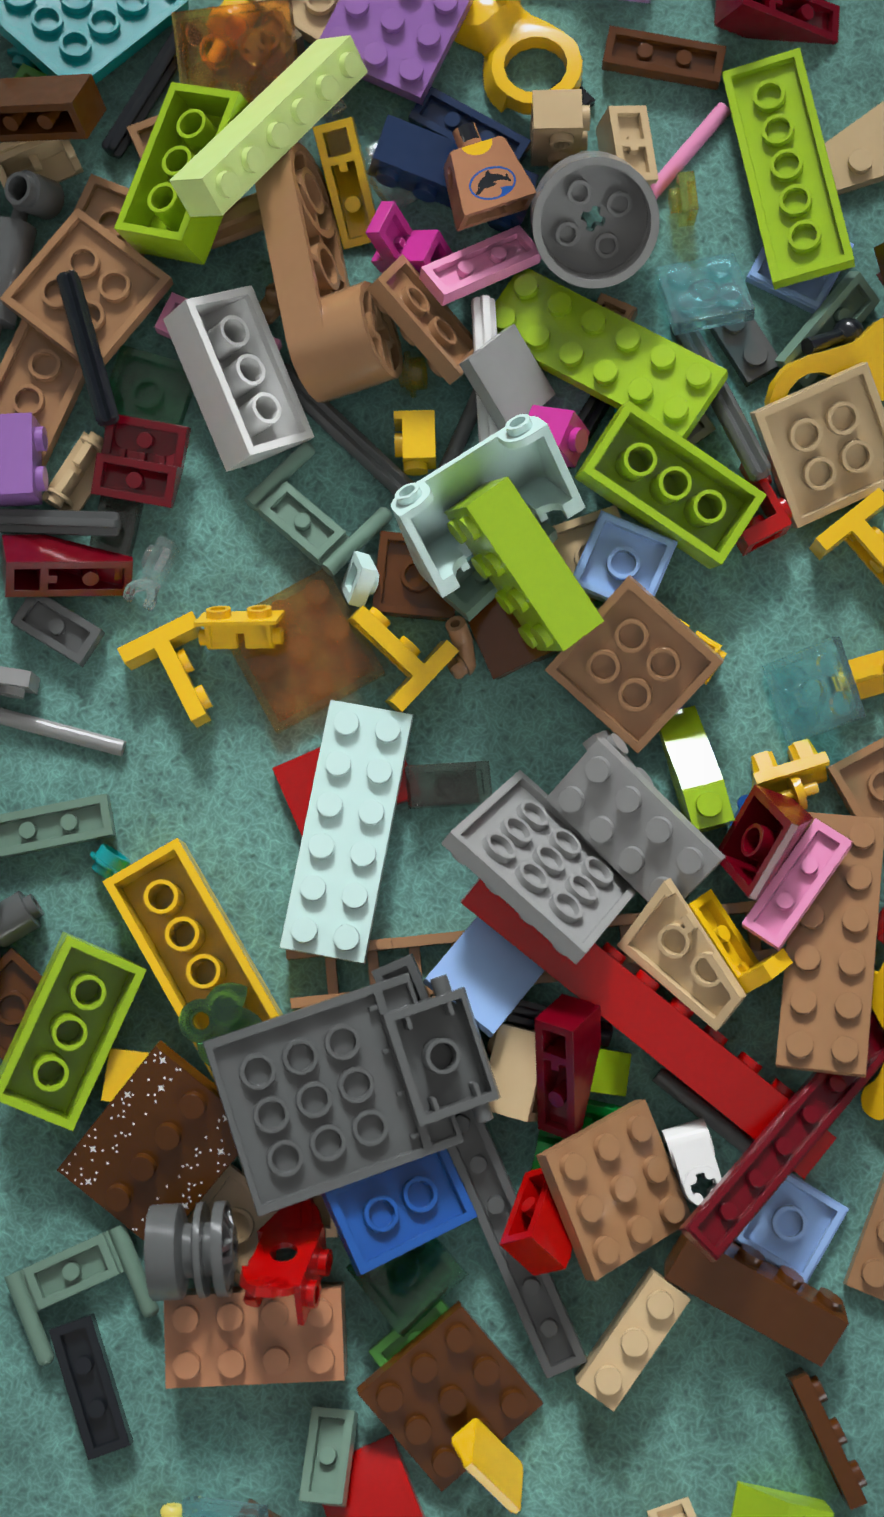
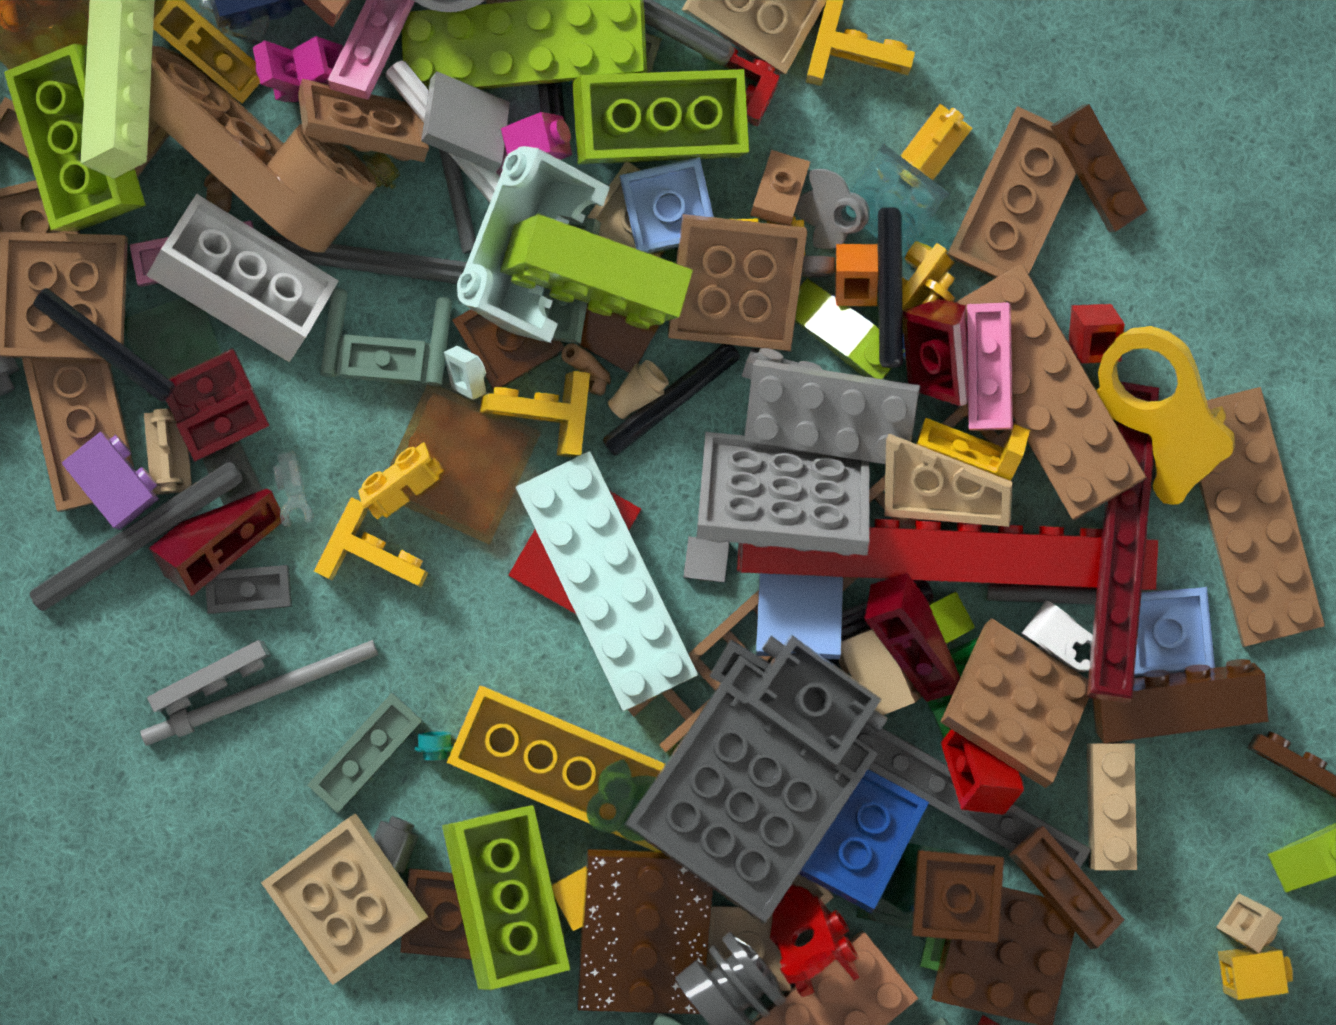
camera: 40 degrees left, 5 degrees up
(416, 441) = (426, 224): yellow brick -> none
(441, 1318) = (957, 896): none -> reddish brown plate
(442, 874) = (706, 560): none -> light grey tile
(448, 784) = (659, 485): clear smoke plate -> none
(490, 694) = (639, 388): none -> tan cone
(490, 1463) = (1072, 977): yellow slope -> none
(511, 722) = (673, 397): none -> black axle
(542, 1380) = (1066, 887): none -> reddish brown plate
(710, 700) = (818, 266): none -> light grey tile
(725, 615) = (780, 188): none -> medium nougat plate
(738, 729) = (856, 274): none -> orange brick
(752, 660) = (826, 209): none -> light grey plate
(759, 758) = (890, 287): none -> black axle

